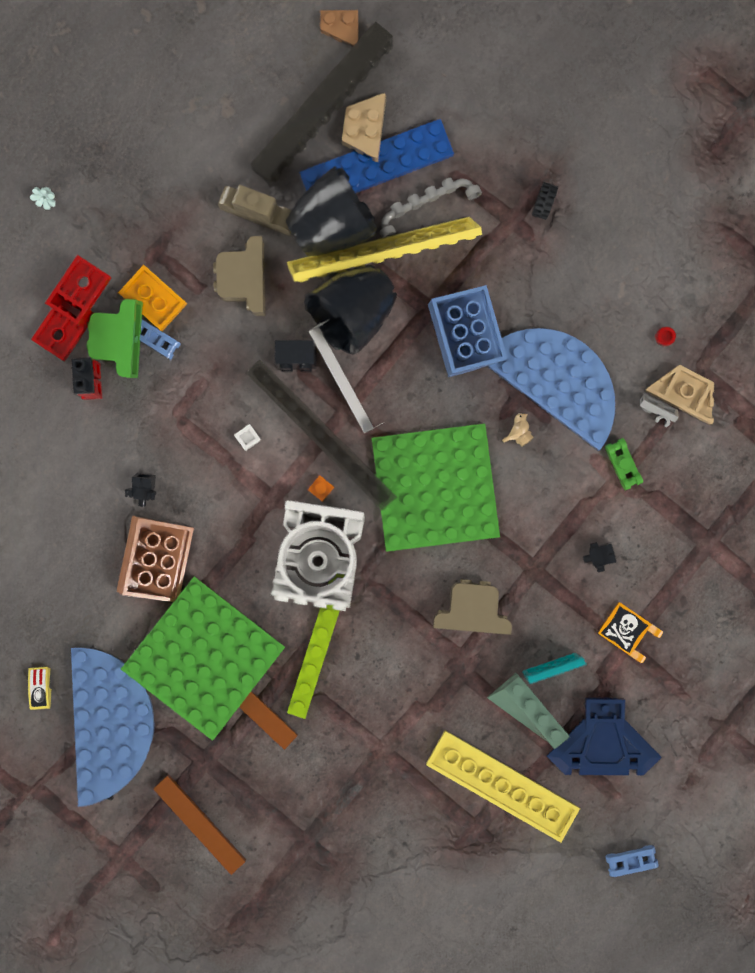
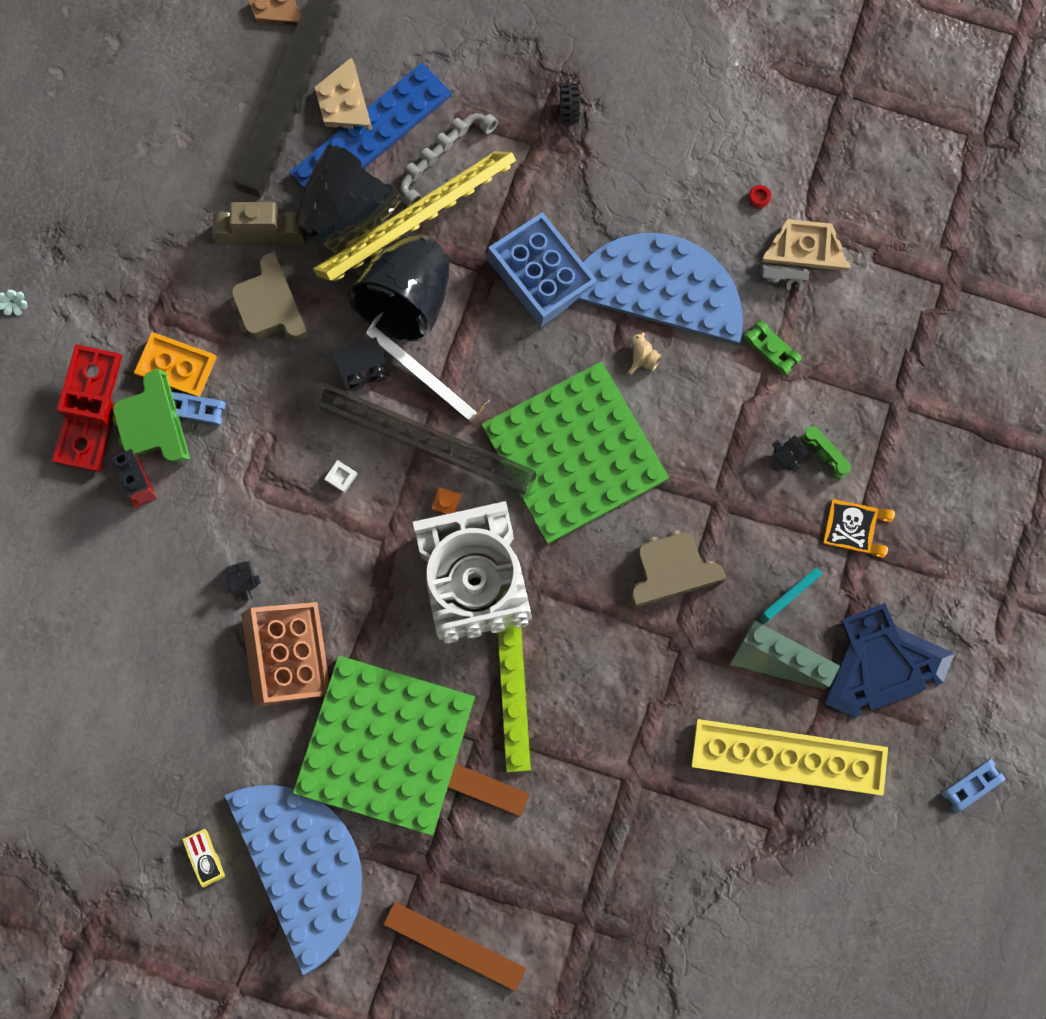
camera: 20 degrees left, 10 degrees down
(630, 565) = (826, 452): none -> bright green plate

